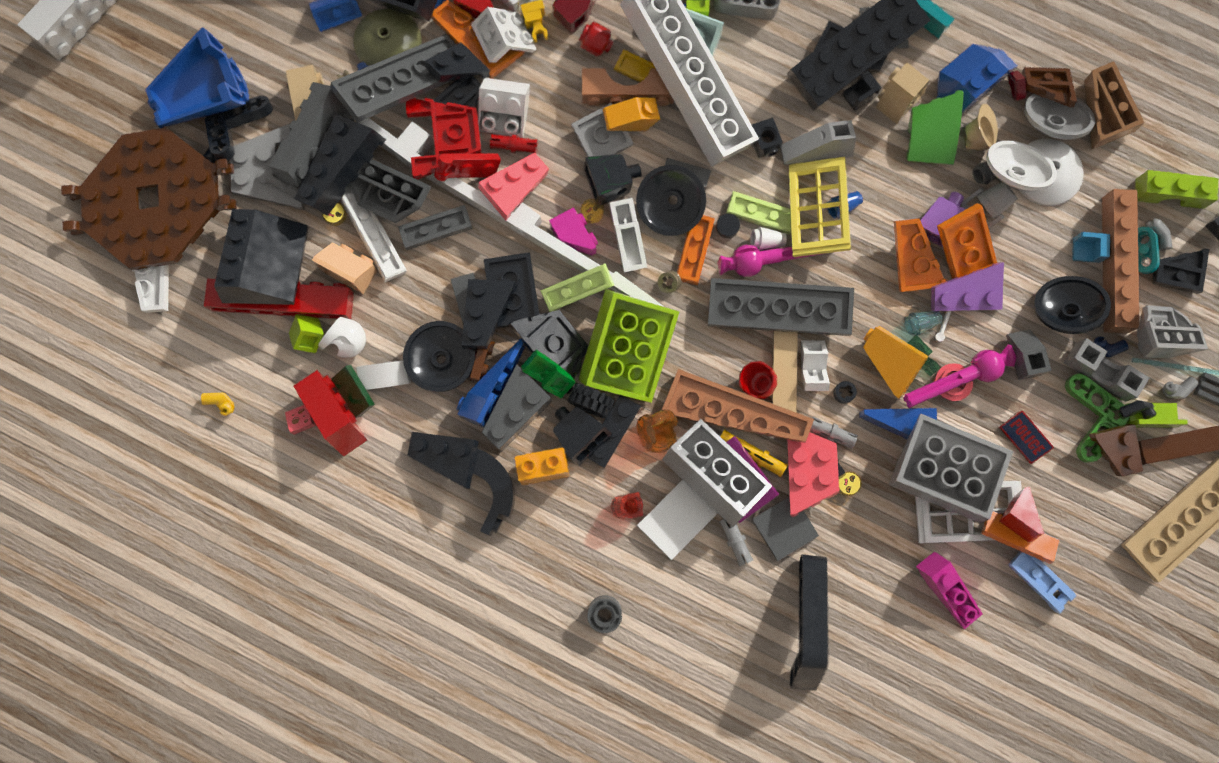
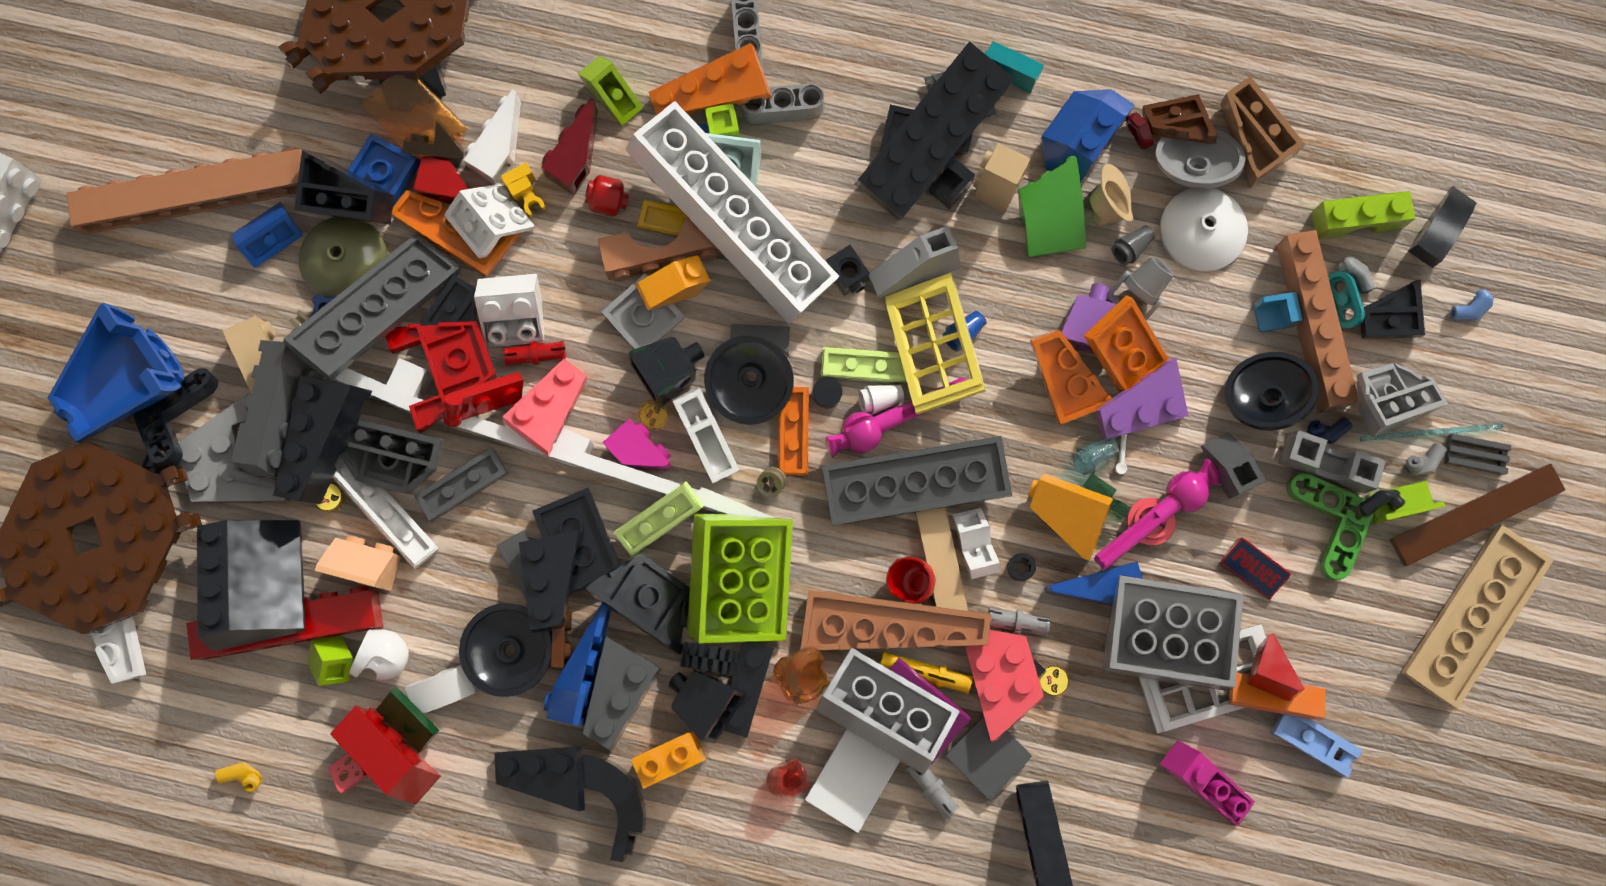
camera: 15 degrees left, 0 degrees up
(456, 63) = (437, 271): black wing -> none
(550, 374) = (651, 638): green slope -> none
(1021, 166) = (1168, 234): white dish -> none
(1120, 449) = (1372, 555): reddish brown wing -> none

